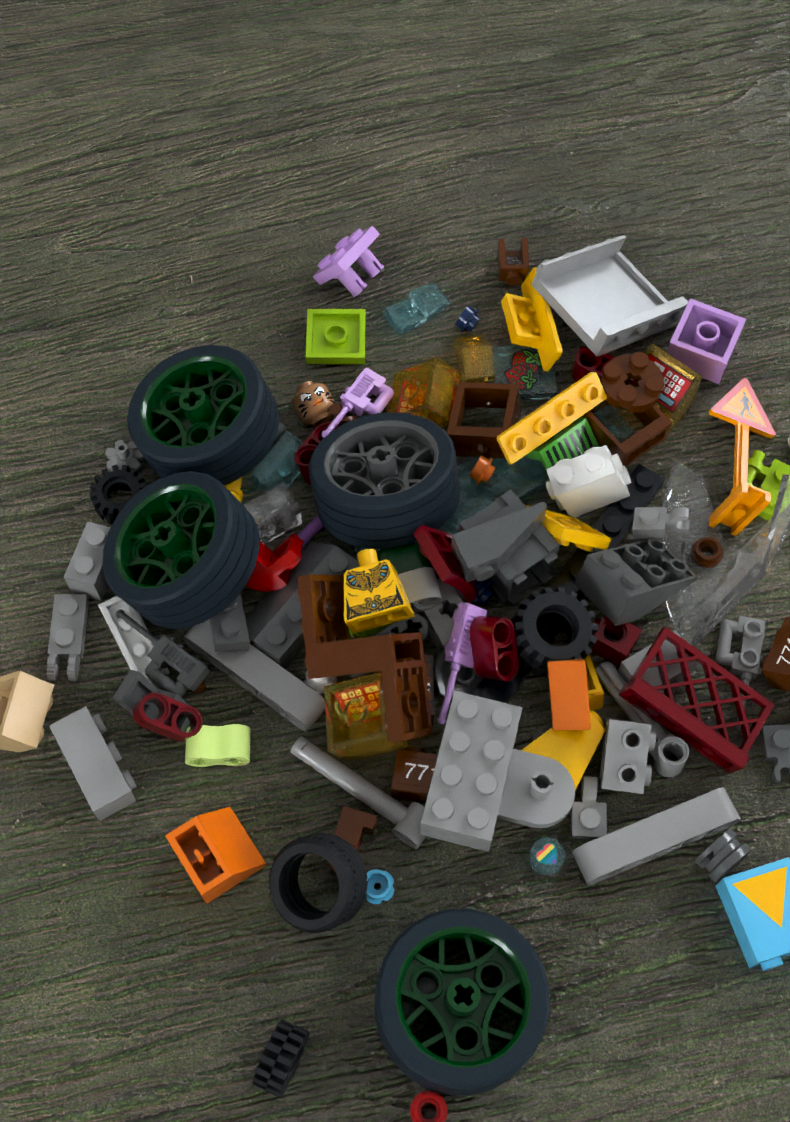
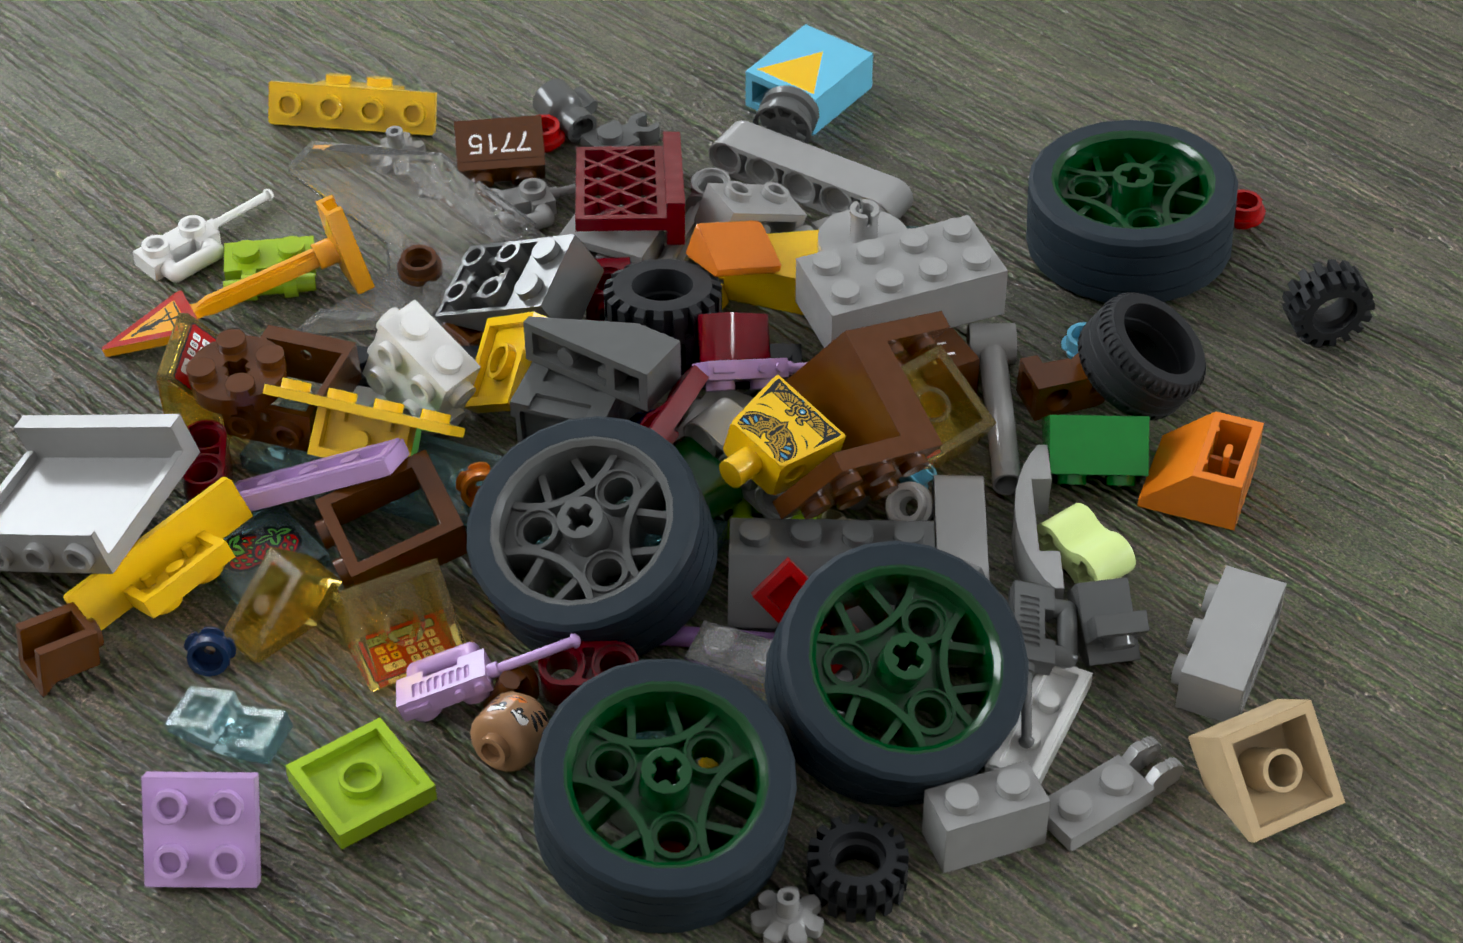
camera: 125 degrees left, 20 degrees down
(169, 710) = (1118, 552): dark red beam -> none
(216, 705) = (1031, 499): none -> light grey slope
(285, 809) = (1097, 447): none -> green slope
(535, 394) = (323, 474): none -> lavender tile
(655, 522) = (427, 296): light grey plate -> none
(705, 339) = (80, 373): lavender slope -> none

